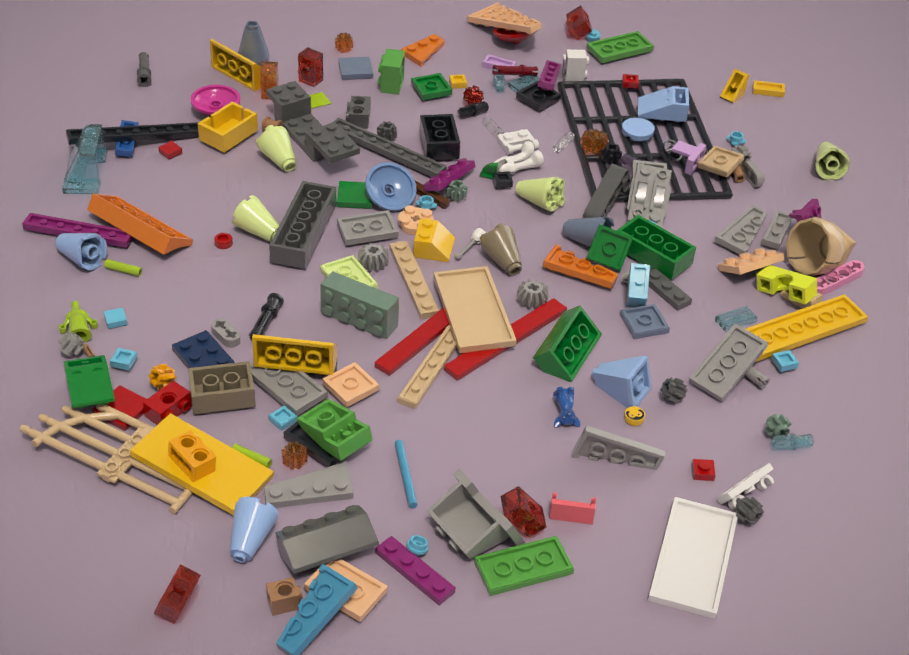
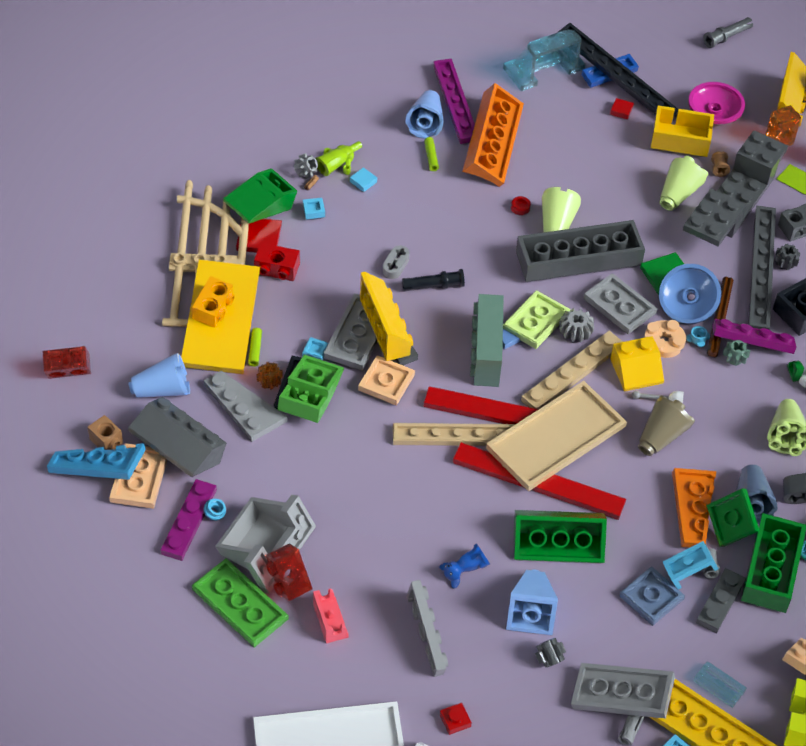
camera: 65 degrees right, 10 degrees up
(161, 376) = (306, 242): light orange gear -> none
(201, 351) = (355, 256): dark blue plate -> none
(221, 387) = (315, 287): dark tan brick -> none
(406, 474) = (301, 468): dark azure bar -> none
(502, 179) = (790, 385): black plate -> none
(532, 294) = (617, 477): light grey gear -> none
(634, 416) = (495, 631): yellow tile -> none

